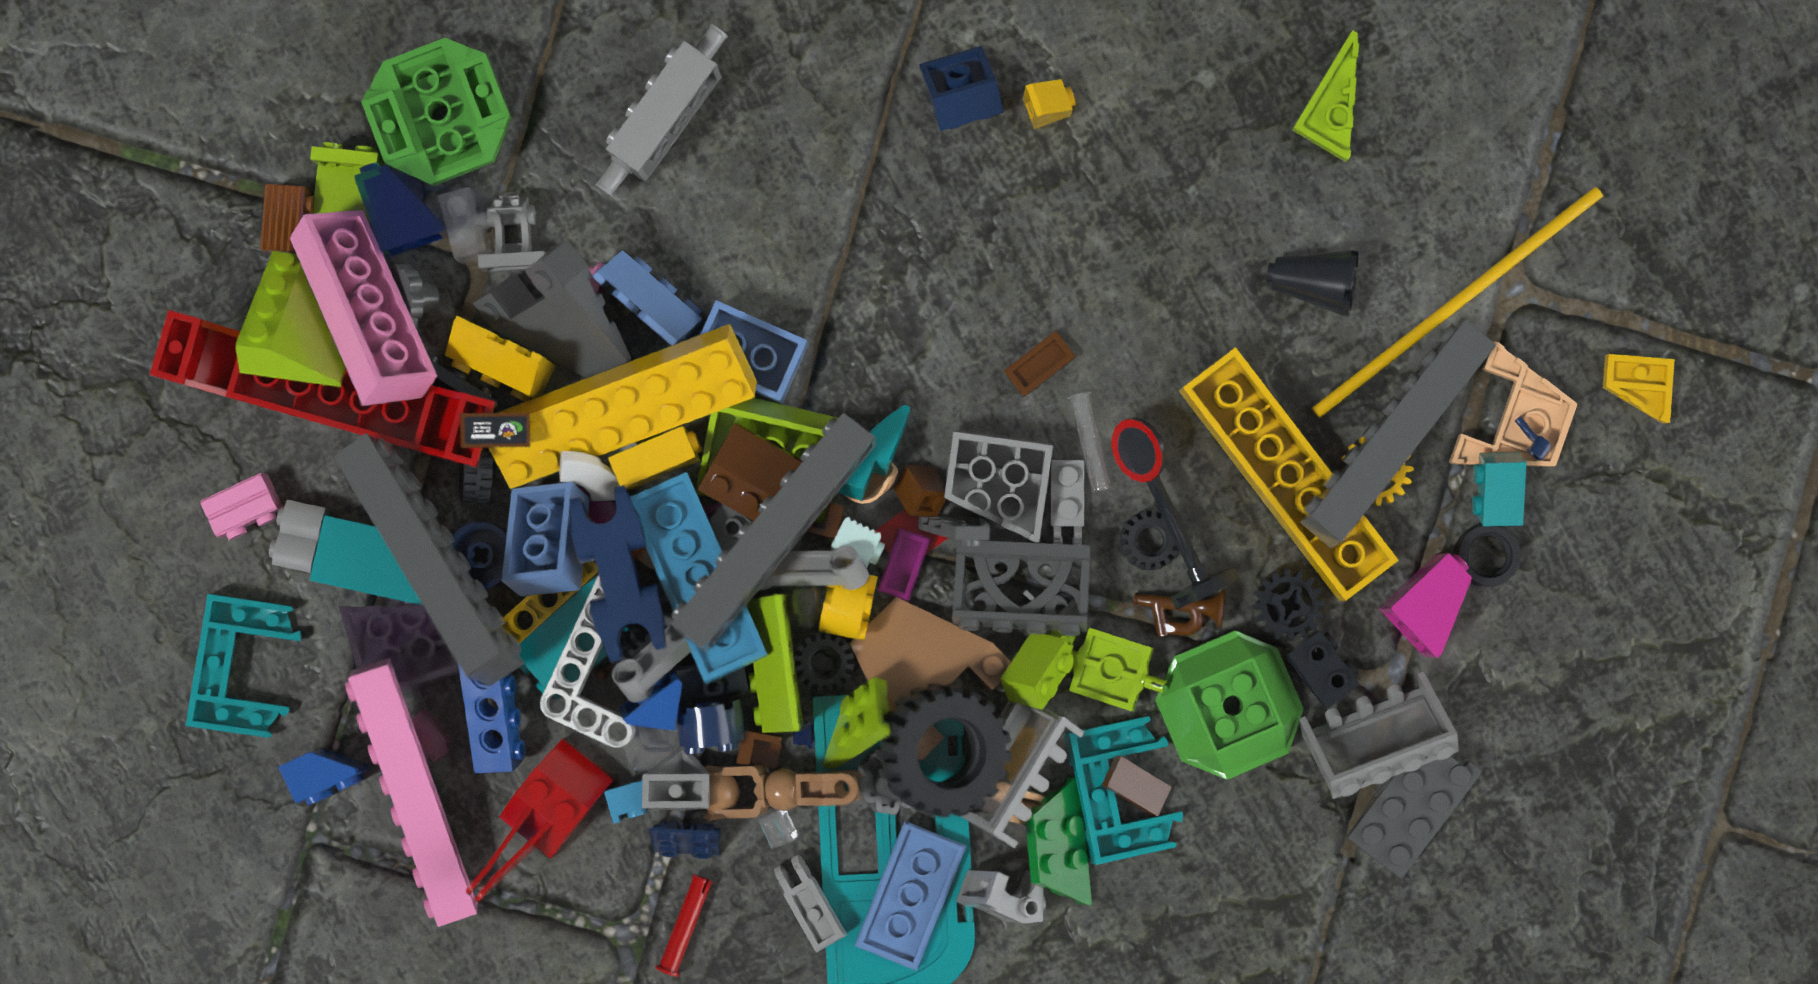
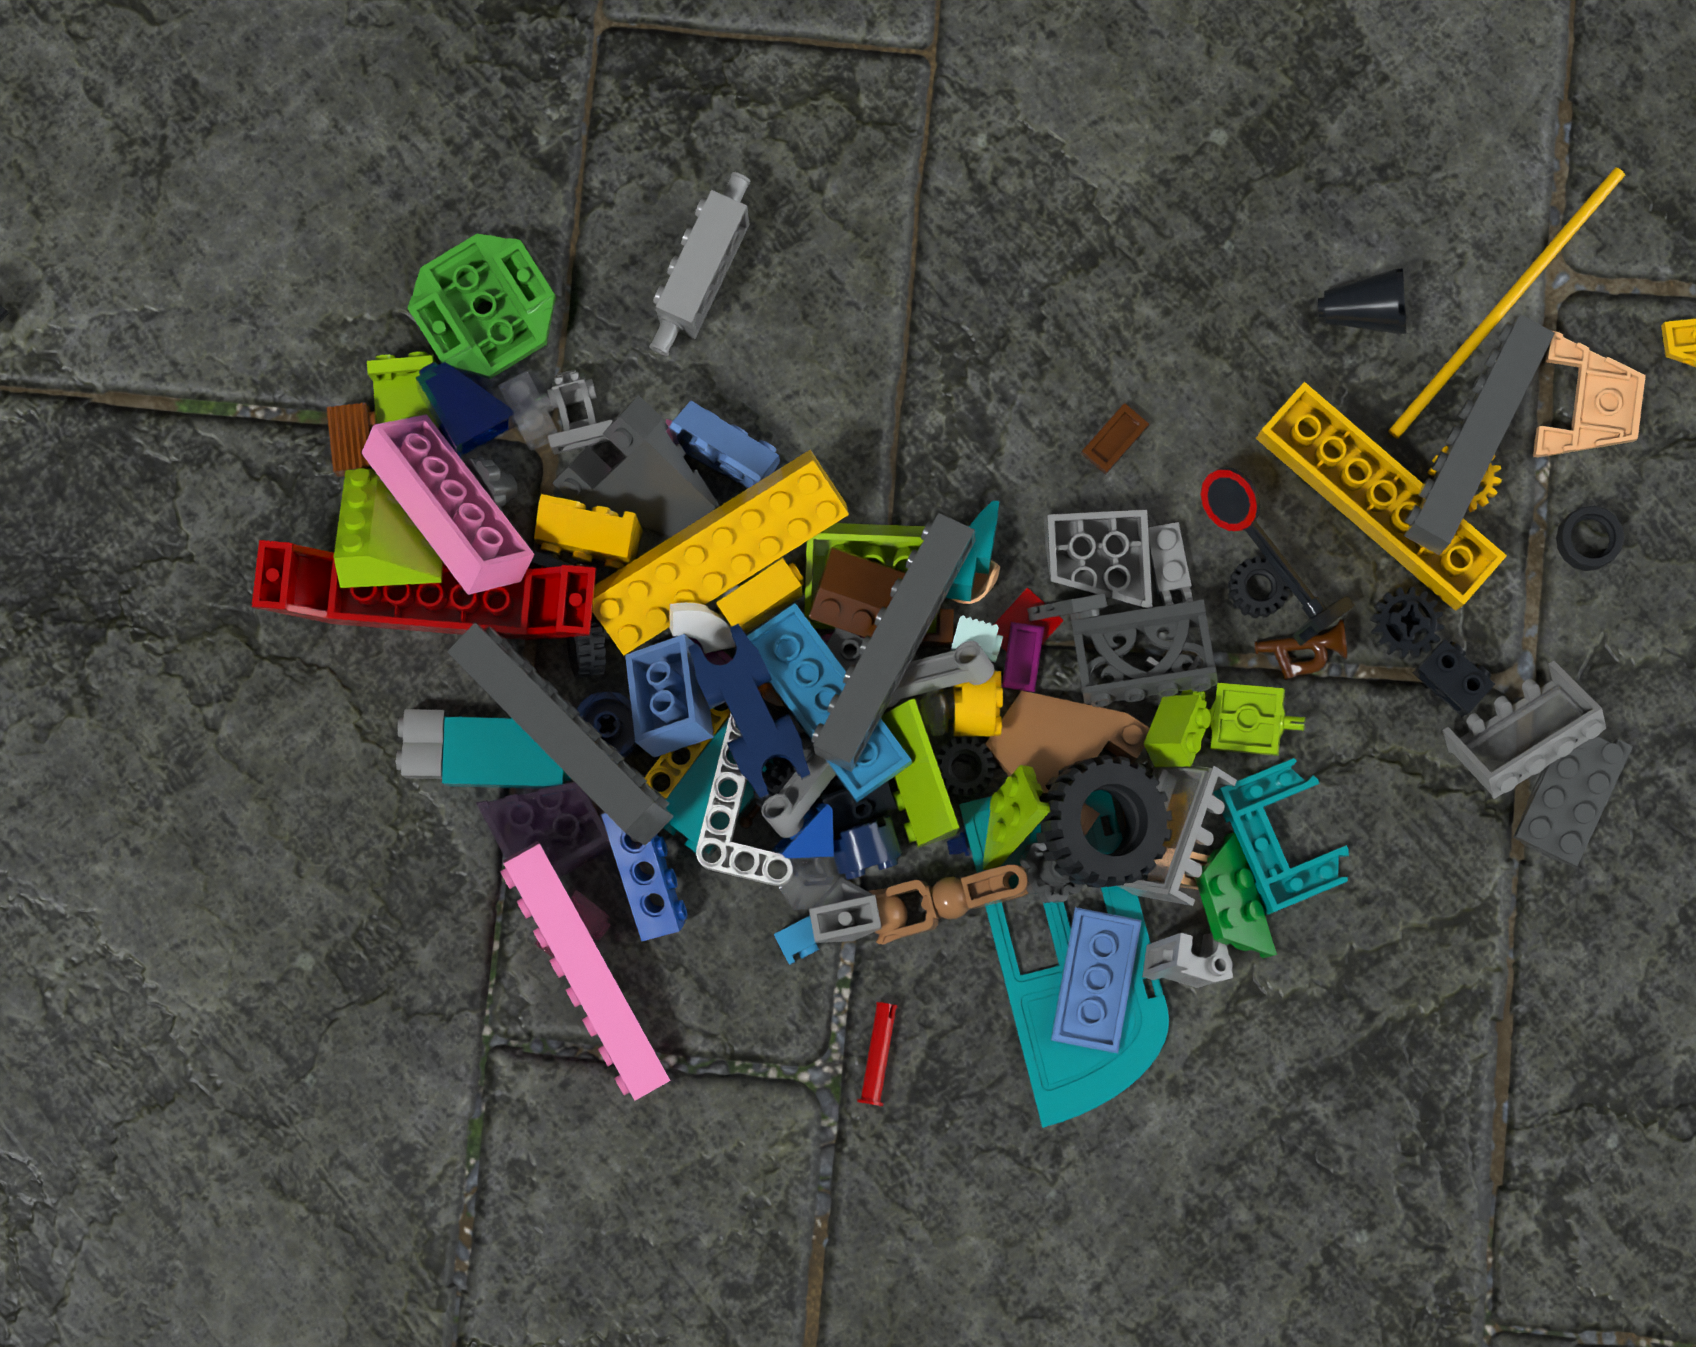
camera: 10 degrees left, 5 degrees down
(208, 700) = (361, 841): teal wedge -> none
(242, 506) = (360, 726): bright pink brick -> none
(317, 772) = (486, 971): blue slope -> none
(494, 430) = (602, 594): tile -> none
(548, 807) = (721, 961): red slope -> none
(672, 841) = (863, 968): dark blue hinge -> none
(760, 749) = (918, 864): reddish brown panel -> none
(768, 349) = (852, 471): medium blue brick -> none
(778, 828) = (950, 940): clear slope -> none
(810, 905) = (1000, 1010): light grey hinge -> none
(921, 490) = (1025, 582): reddish brown panel -> none
(961, 88) = (986, 189): dark blue slope -> none
(1048, 102) = (1071, 186): yellow slope -> none
(1090, 441) = (1180, 502): clear pin -> none
(1136, 786) = (1296, 827): tile -> none
(1195, 697) = (1337, 740): bright green piece -> none
(1329, 112) = (1345, 147): lime wing -> none
(1429, 603) = (1545, 593): dark pink slope -> none
(1500, 489) = (1589, 470): teal brick -> none
(1540, 445) = (1618, 420): dark blue hand -> none

